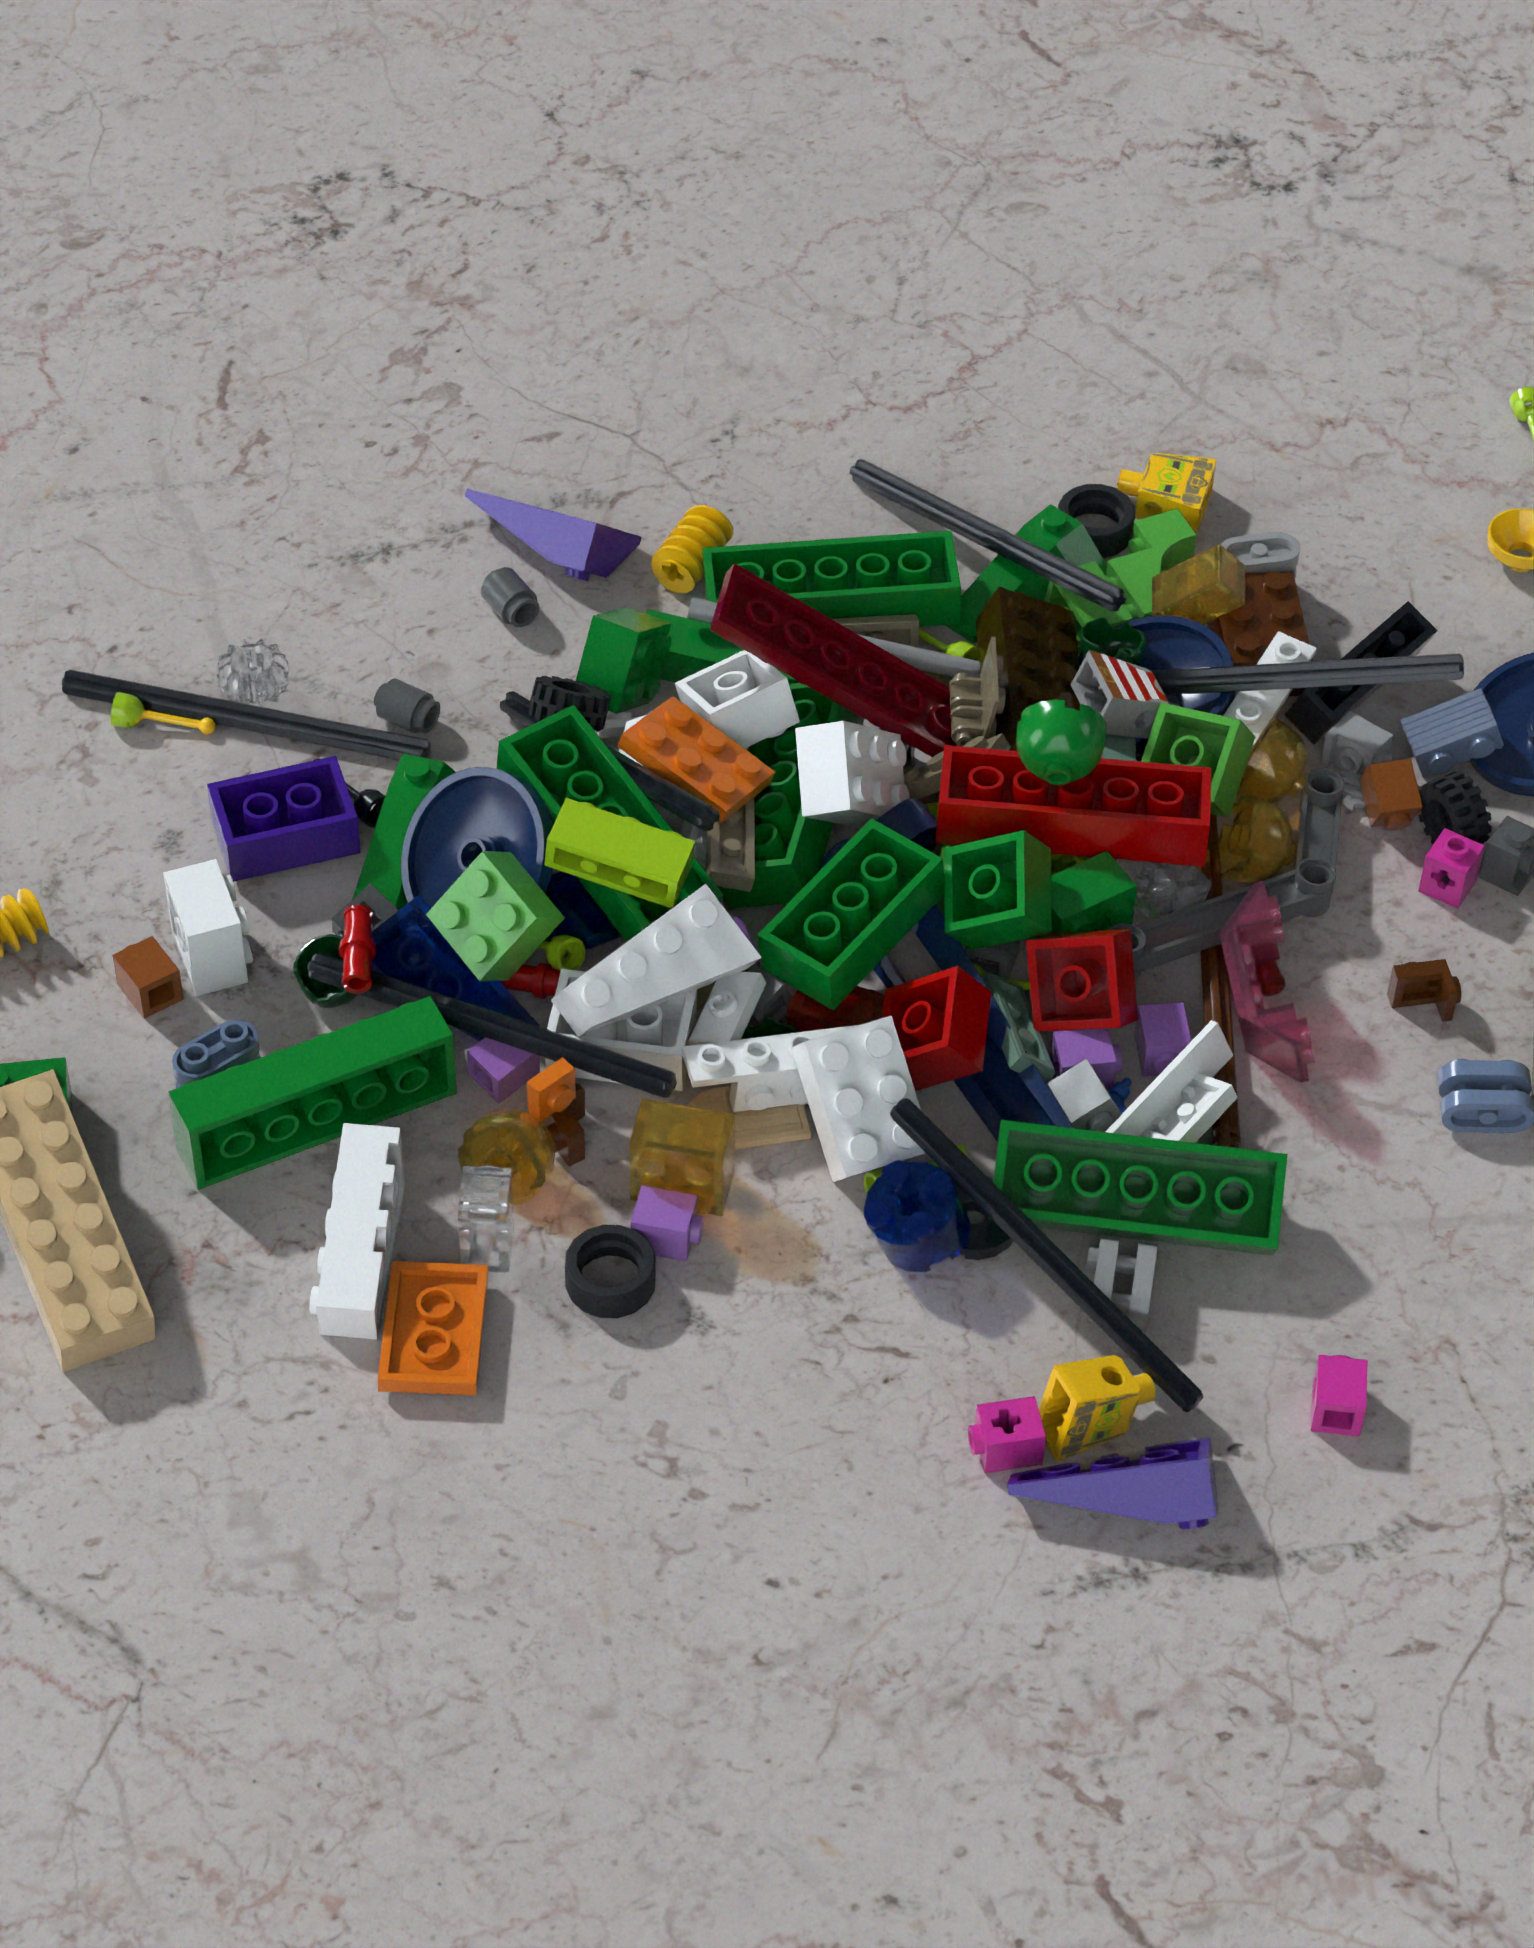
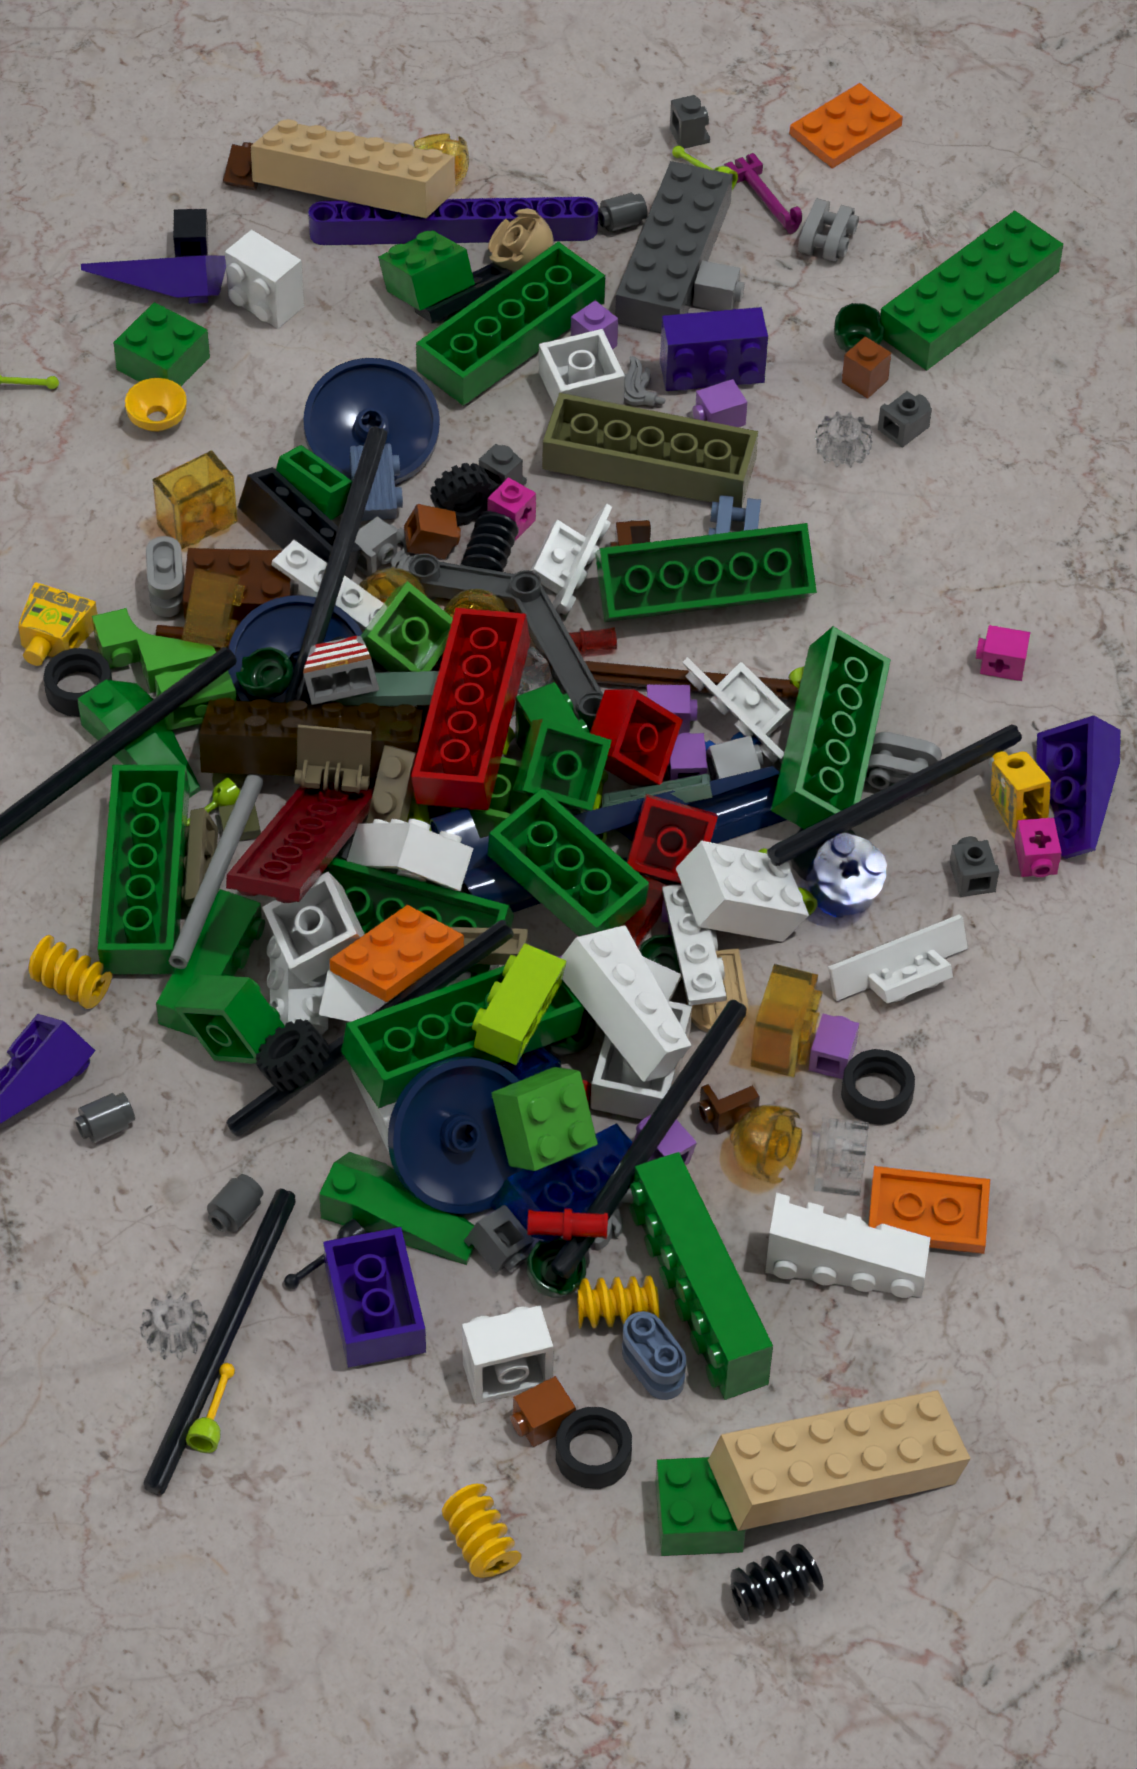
camera: 85 degrees left, 5 degrees up
(104, 1050) = (593, 1475): none -> black tyre
(284, 1016) = (615, 1300): none -> yellow piece
(551, 1090) = (726, 1094): orange plate -> none
(797, 1292) = (902, 964): none -> white bracket
(968, 1366) = (973, 860): none -> dark grey brick
(1060, 741) = (455, 684): green cylinder -> none
(1270, 1033) = (636, 642): clear pink slope -> none
(1371, 572) = (195, 499): none -> clear yellow brick
(1380, 1052) = (705, 572): none -> green brick
(1381, 850) = (490, 542): none -> black piece
(1385, 925) = (565, 557): none -> white bracket
(1419, 696) = (315, 480): none -> green brick

